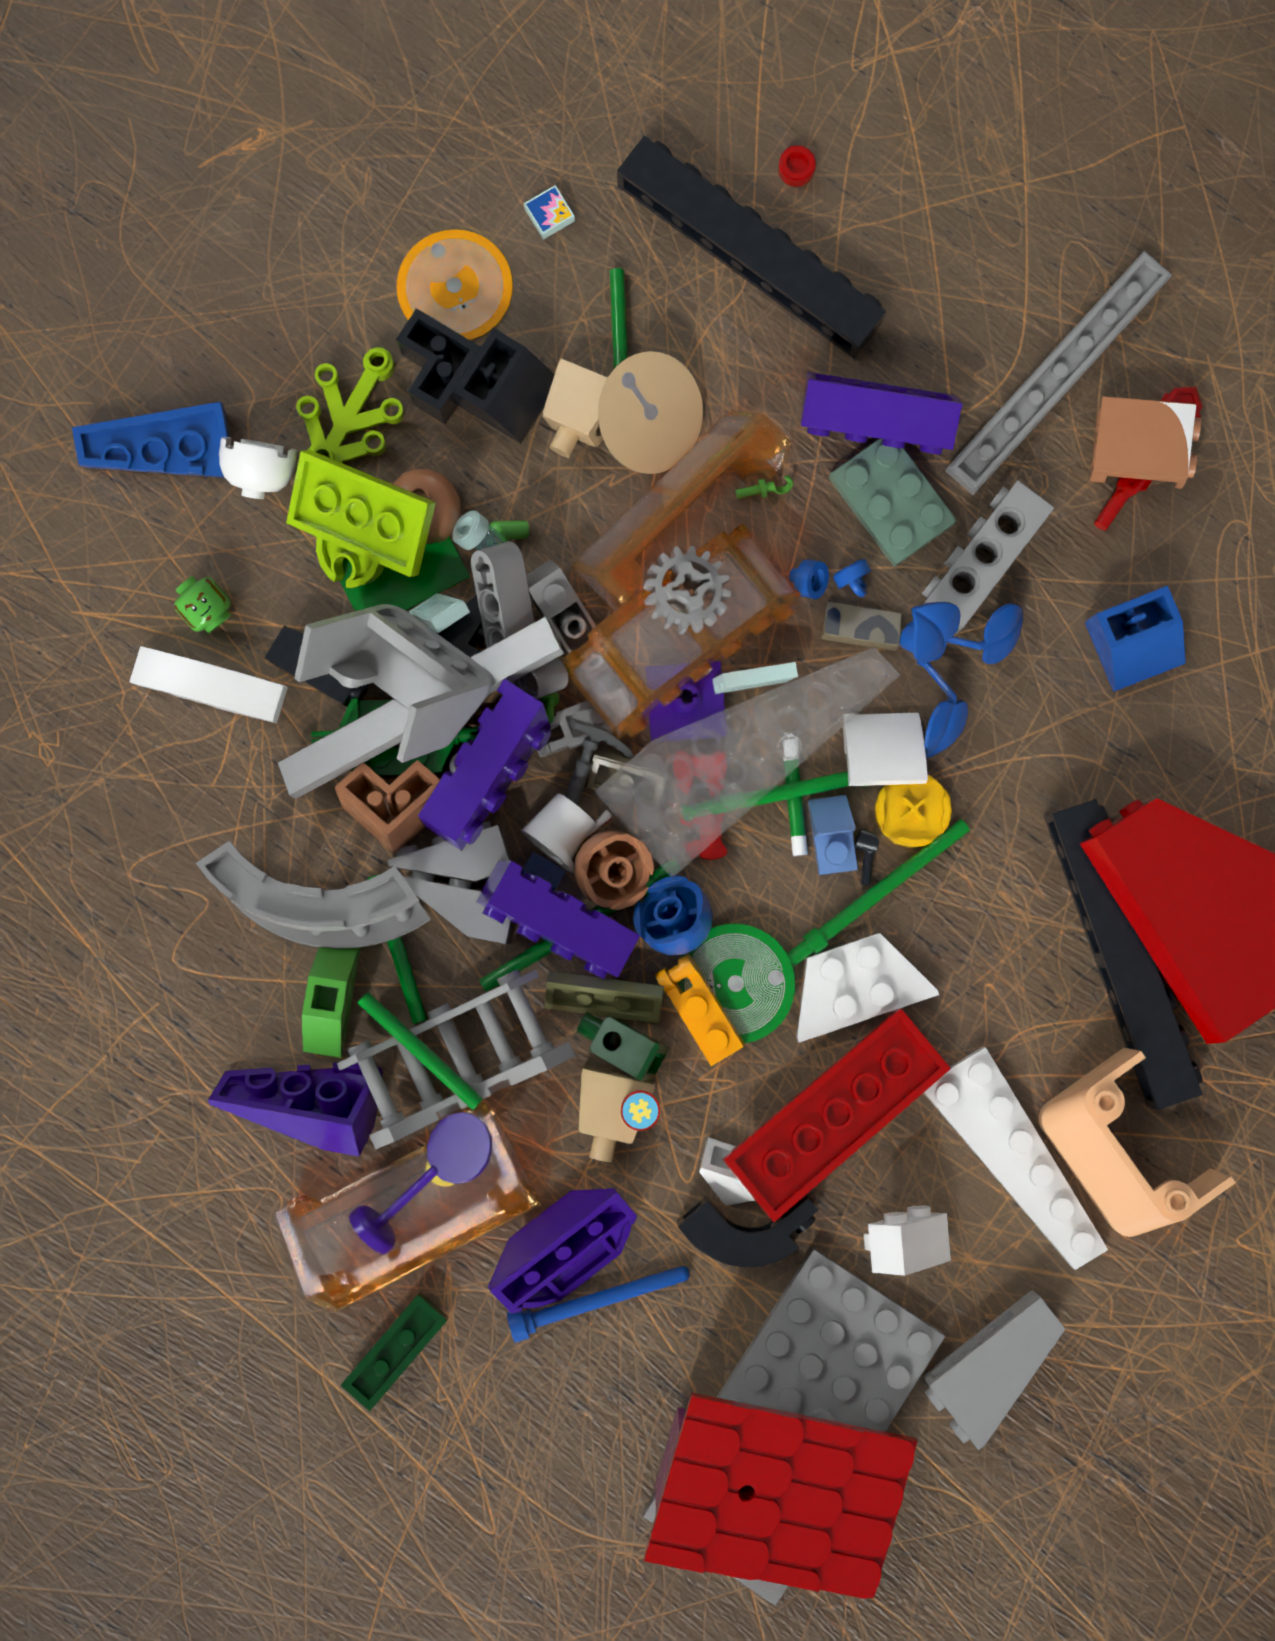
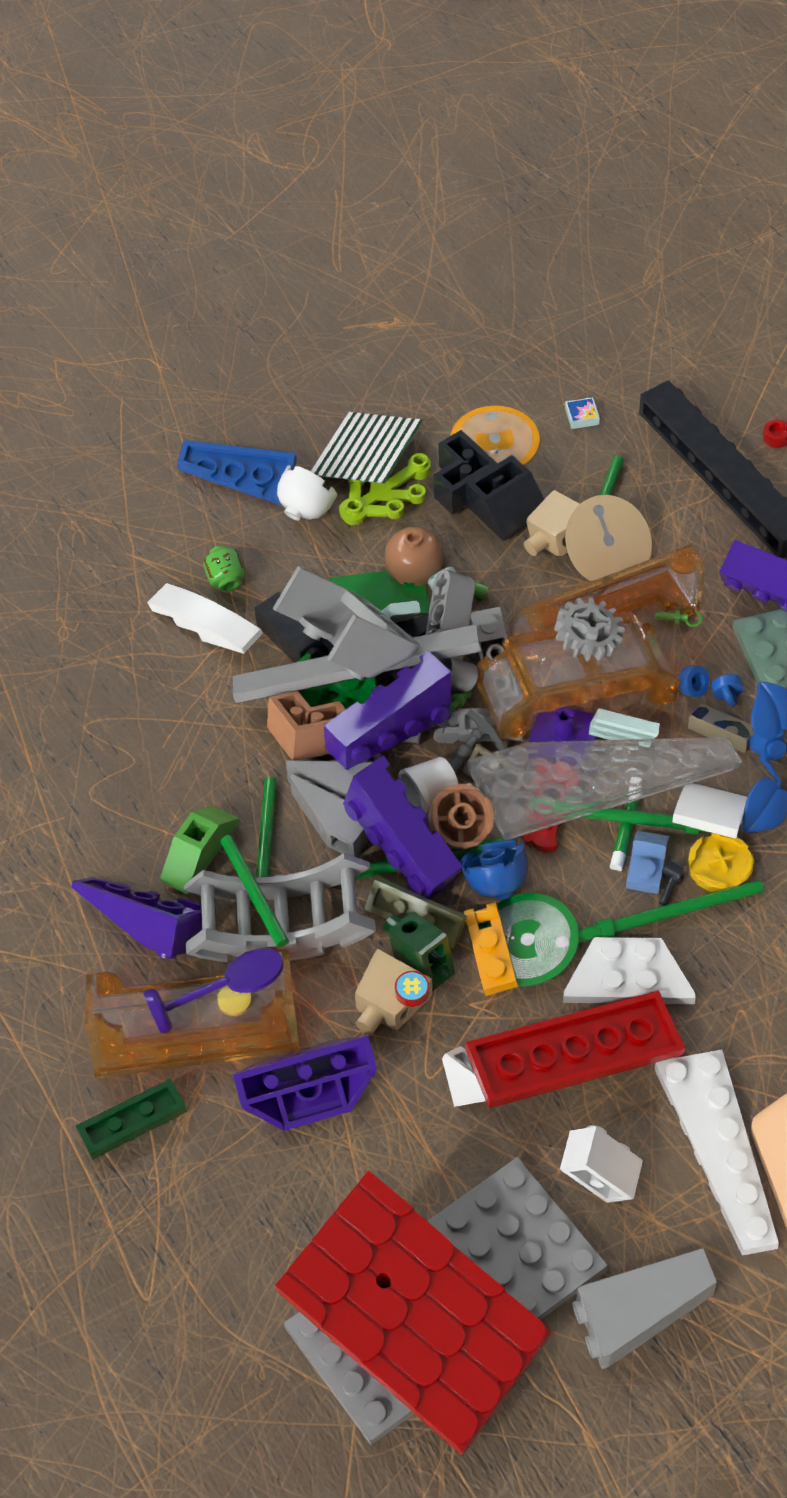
camera: 20 degrees right, 30 degrees down
(304, 360) = (366, 447): none -> sticker
(312, 916) = (184, 737): light grey fence -> none
(358, 520) = (363, 544): lime plate -> none
(526, 1322) = (248, 1133): blue piece -> none
(745, 1245) = (461, 1132): black arch -> none

